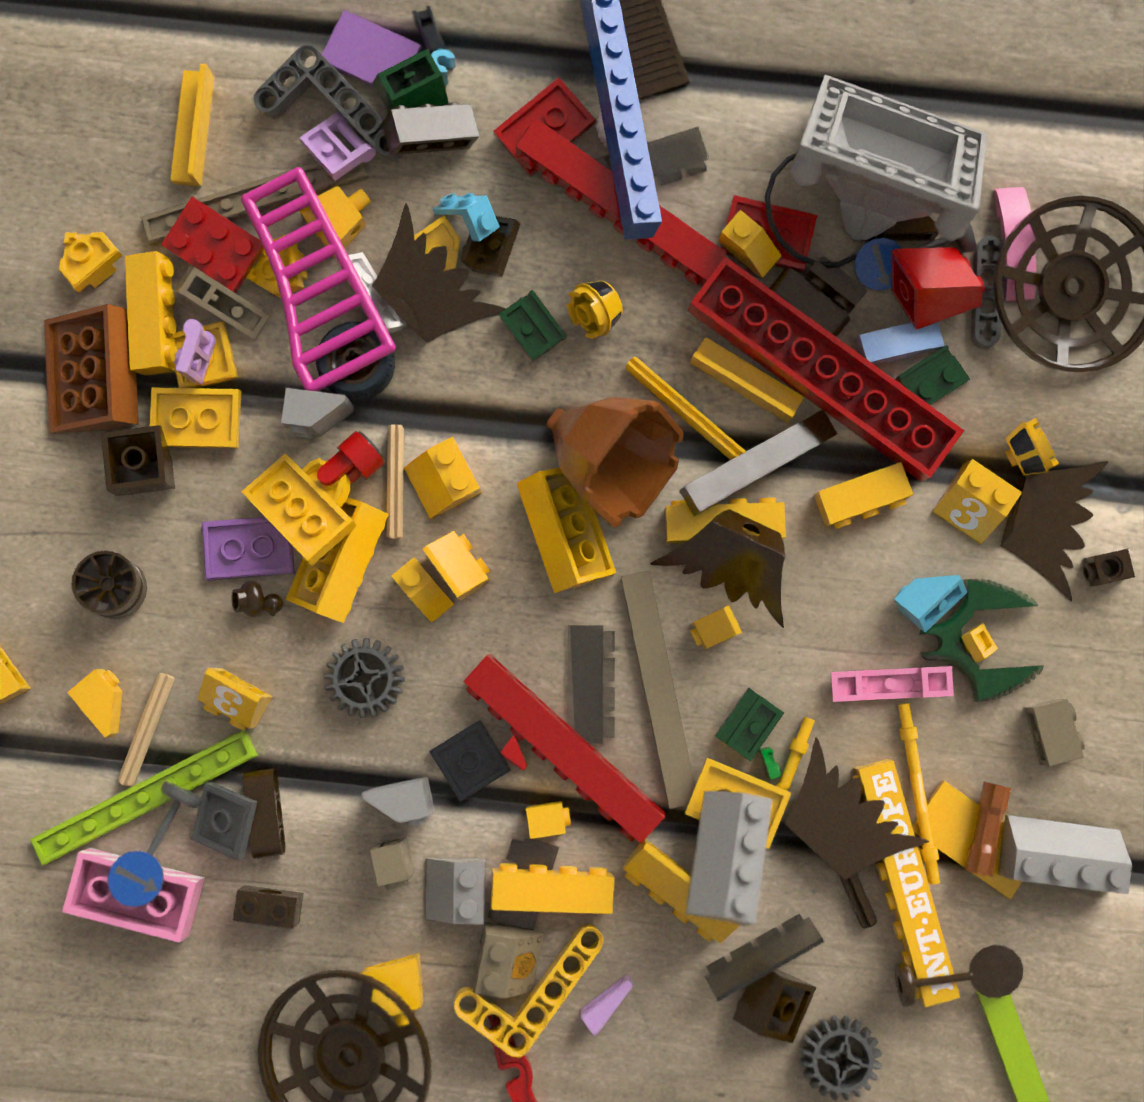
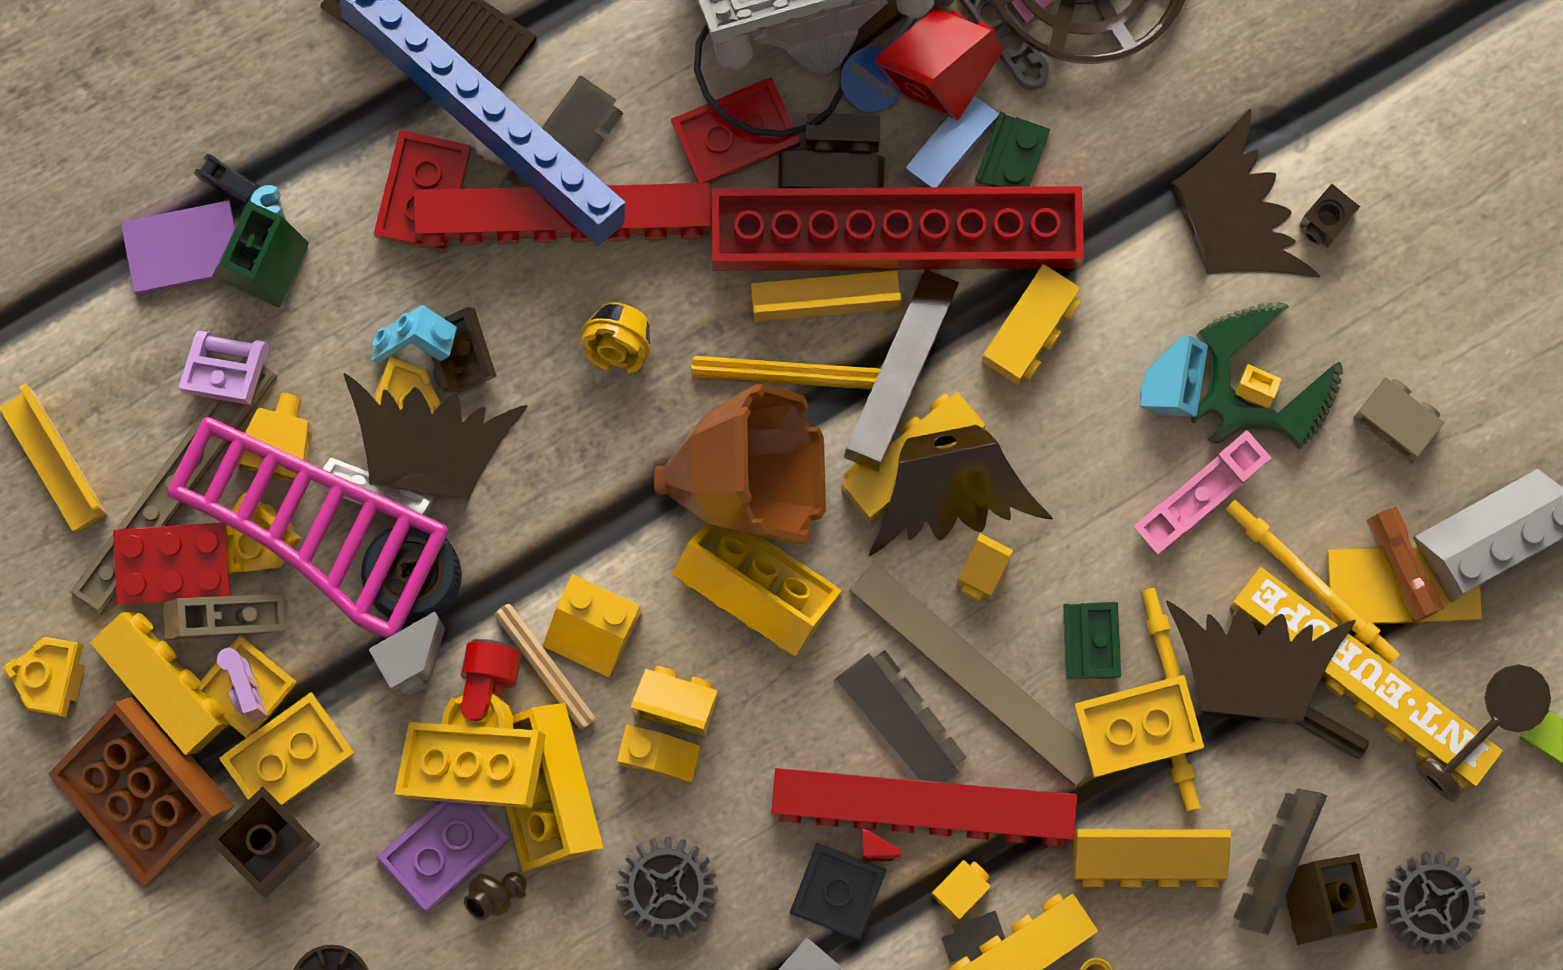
camera: 35 degrees left, 5 degrees down
(337, 95) = (182, 318): dark grey beam -> none
(430, 128) = (309, 279): brick -> none
(532, 326) = (565, 402): dark green plate -> none
(729, 857) = (1168, 780): light grey slope -> none
(749, 244) = (726, 158): yellow slope -> none
(770, 766) = (1144, 666): green tile -> none
(976, 501) = (1148, 247): yellow slope -> none
(1030, 449) = (1161, 155): yellow cone -> none

